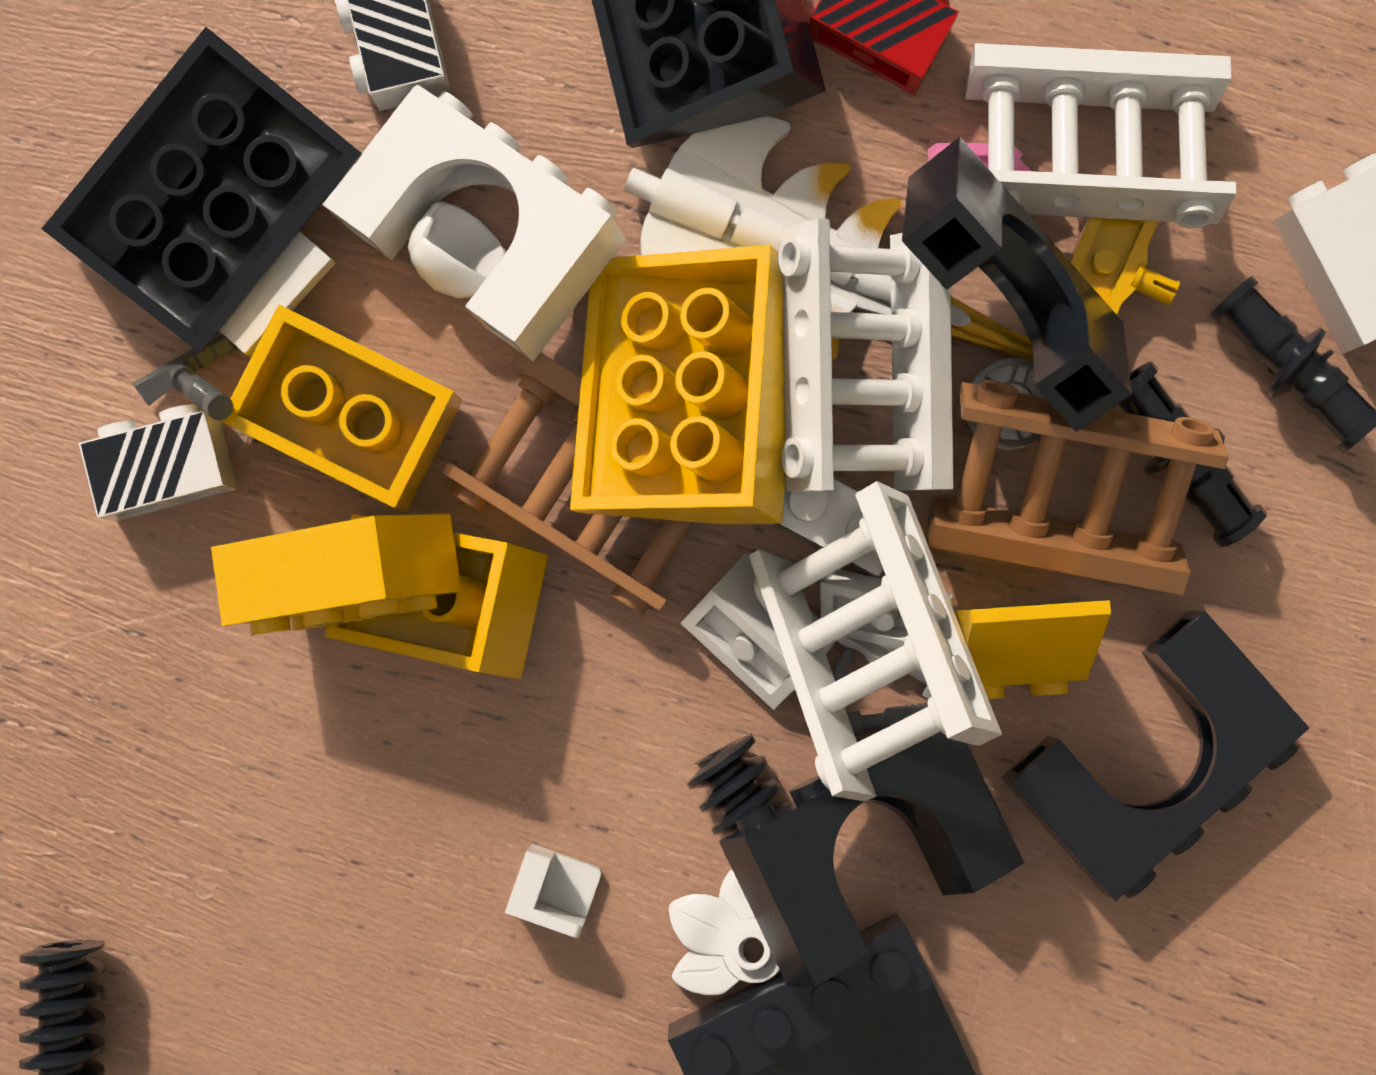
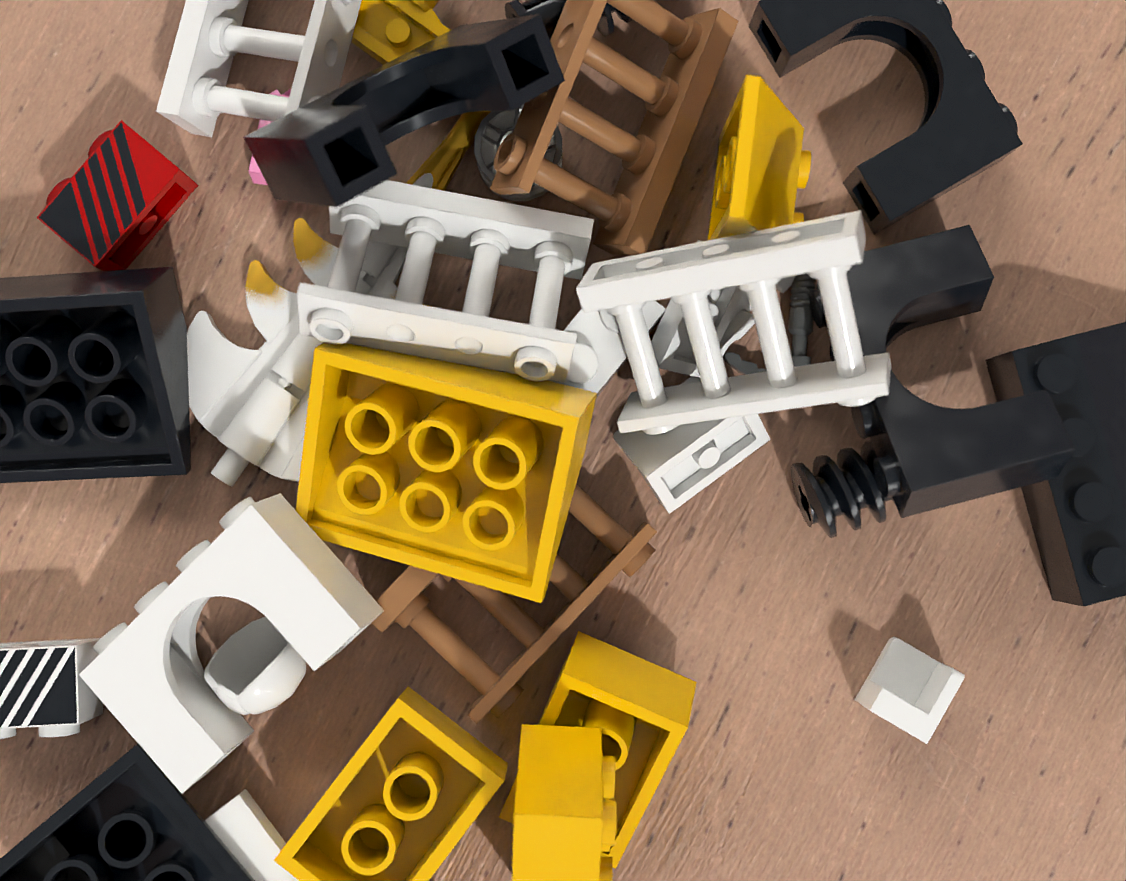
camera: 80 degrees left, 0 degrees up
(716, 937) = (980, 539): white plate -> none

